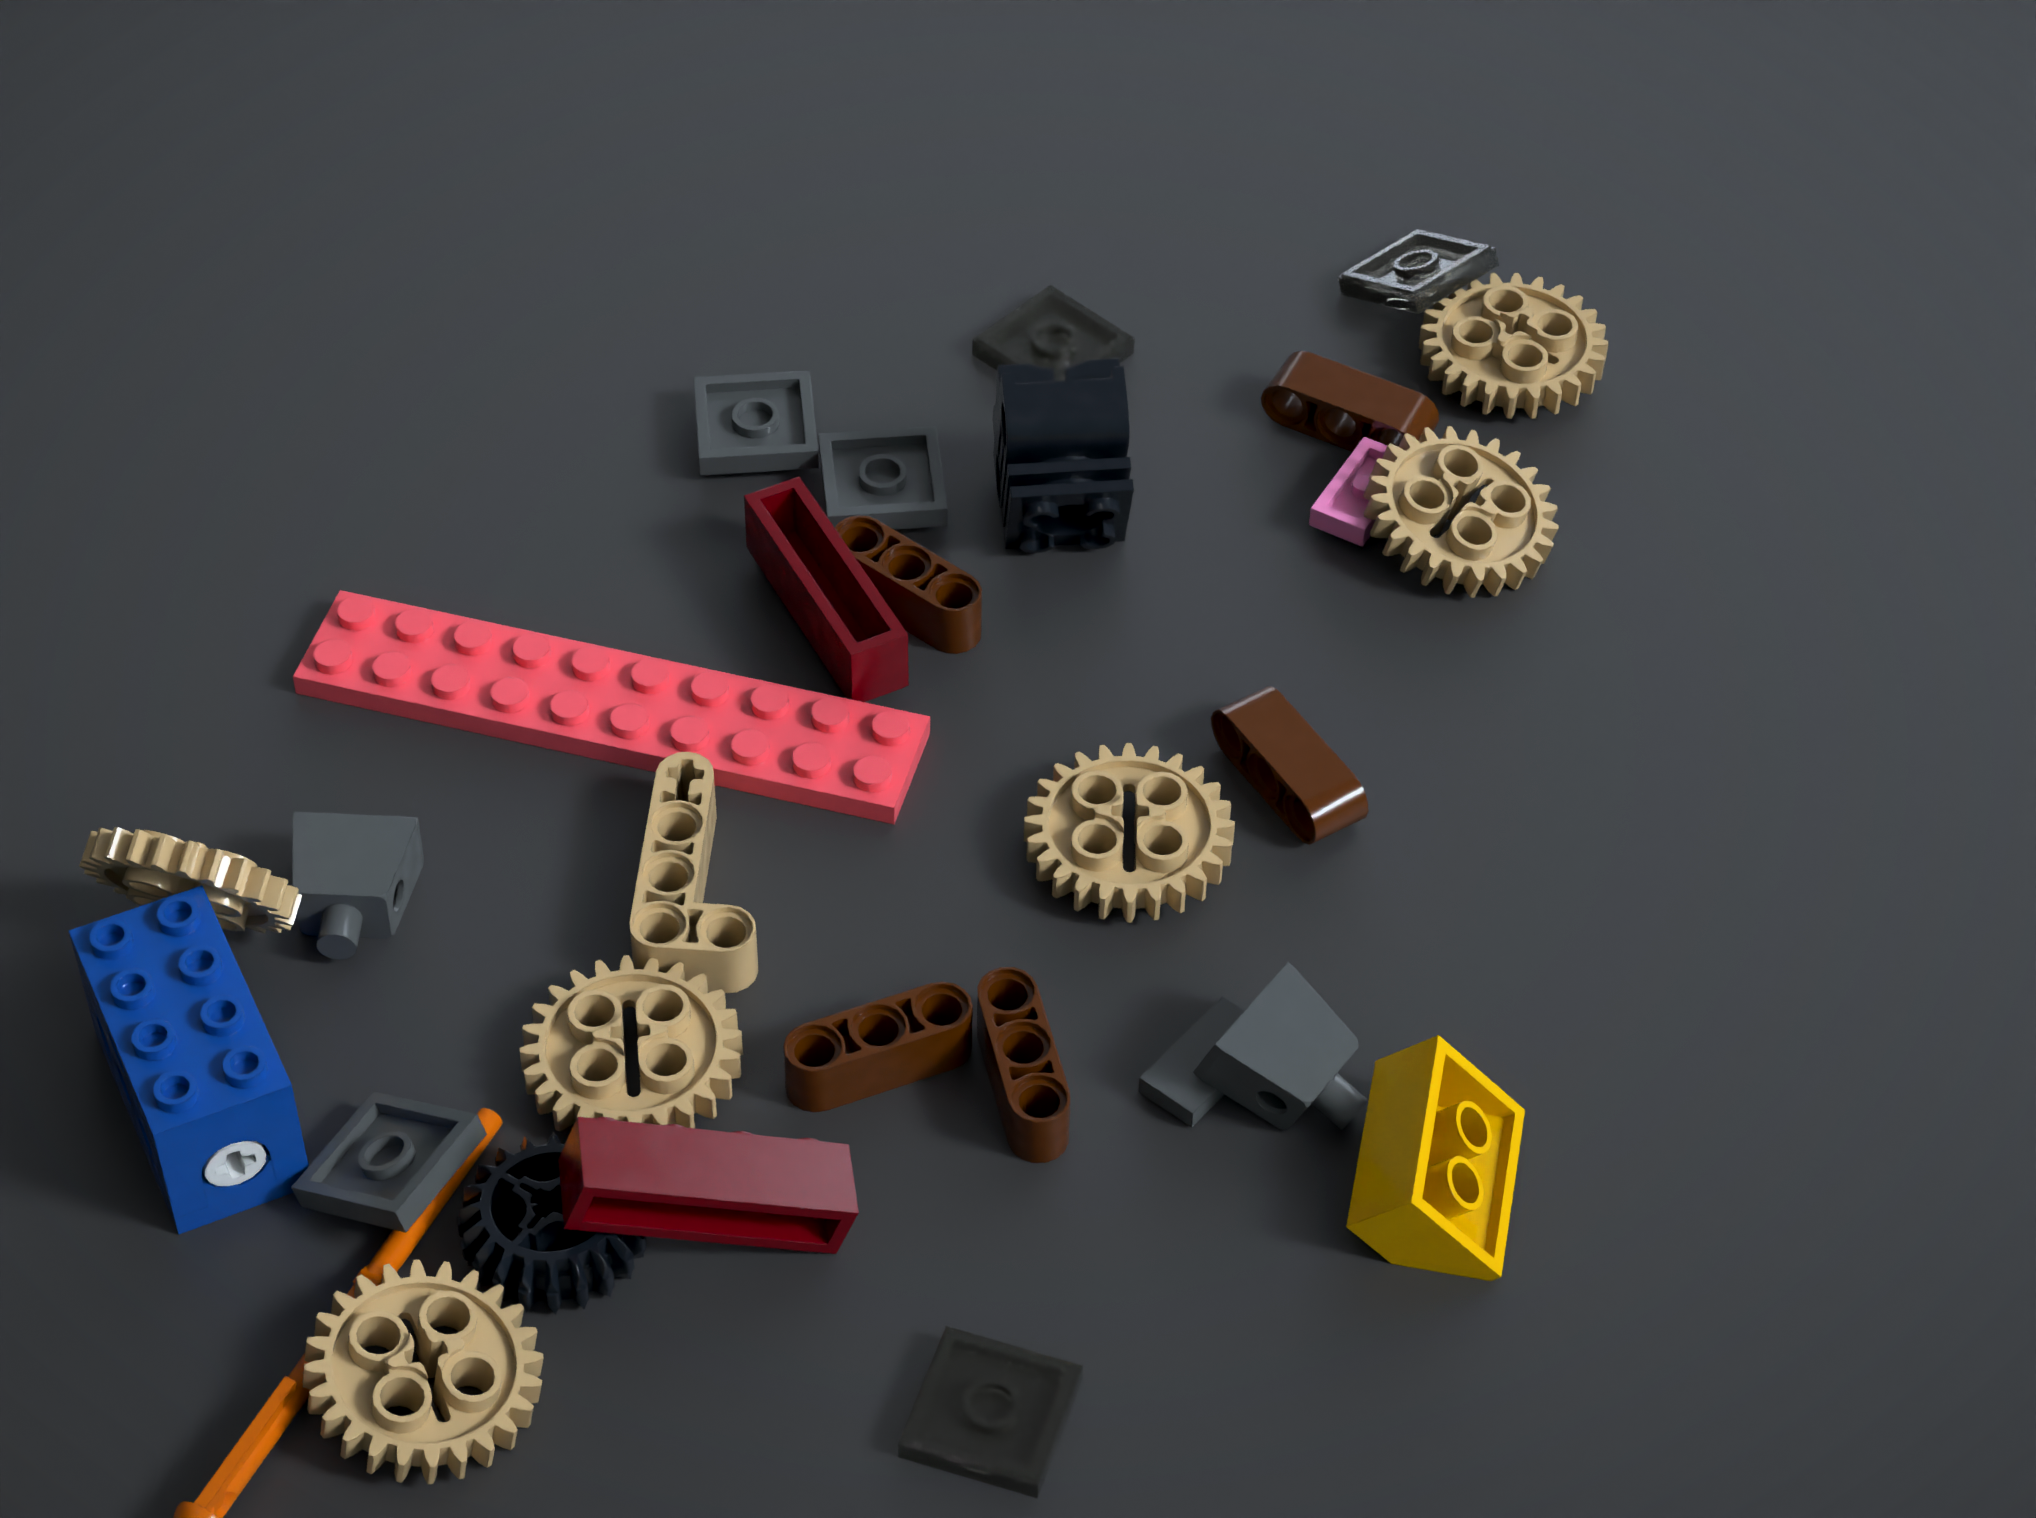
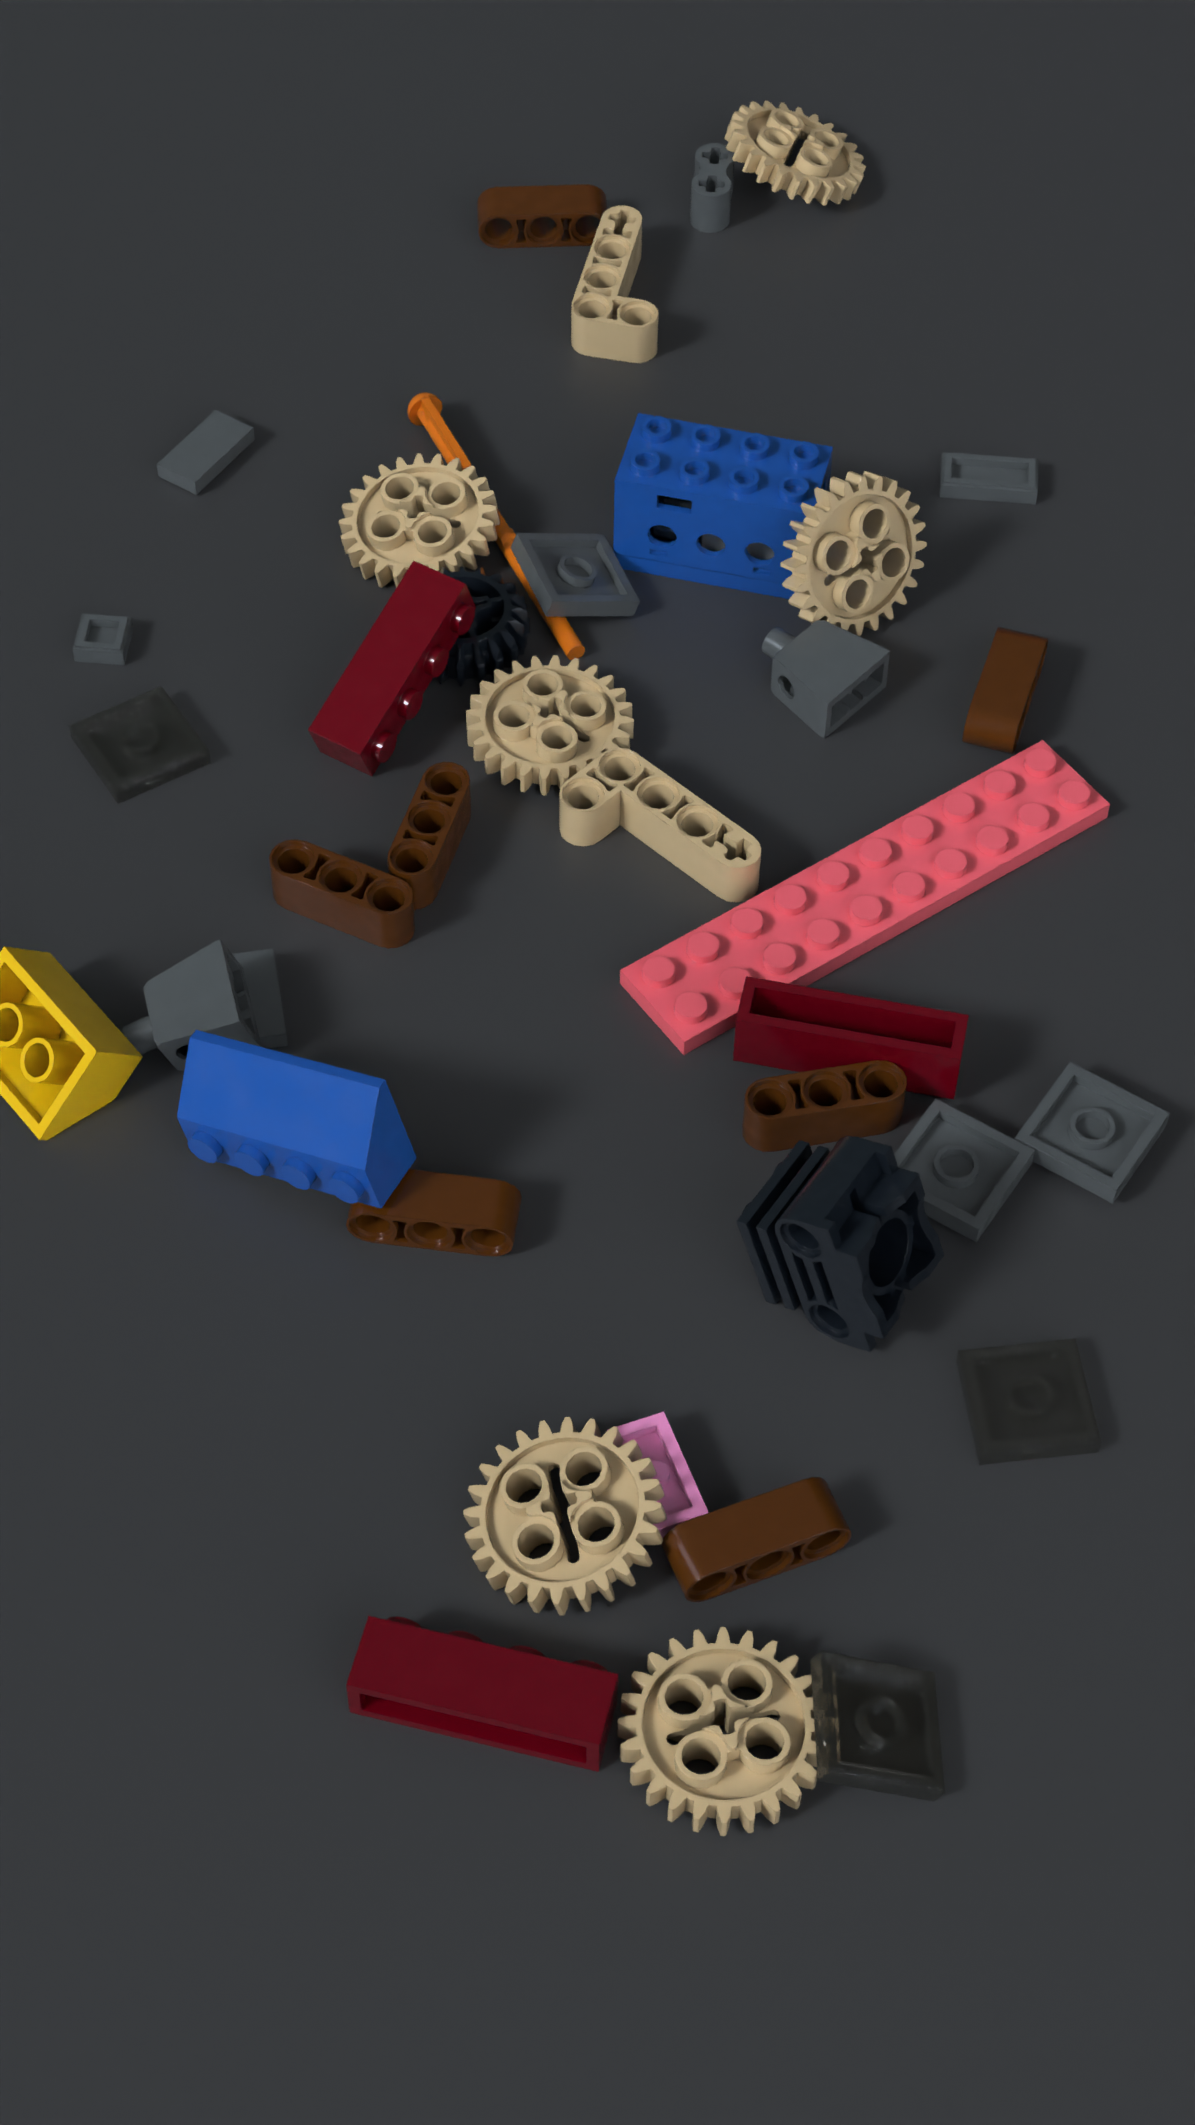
camera: 130 degrees right, 5 degrees up
(245, 734) = (1005, 690): none -> reddish brown beam
(1079, 832) = (466, 1064): tan gear -> none
(1344, 861) = (293, 1120): none -> blue slope
(1644, 476) = (483, 1692): none -> dark red brick

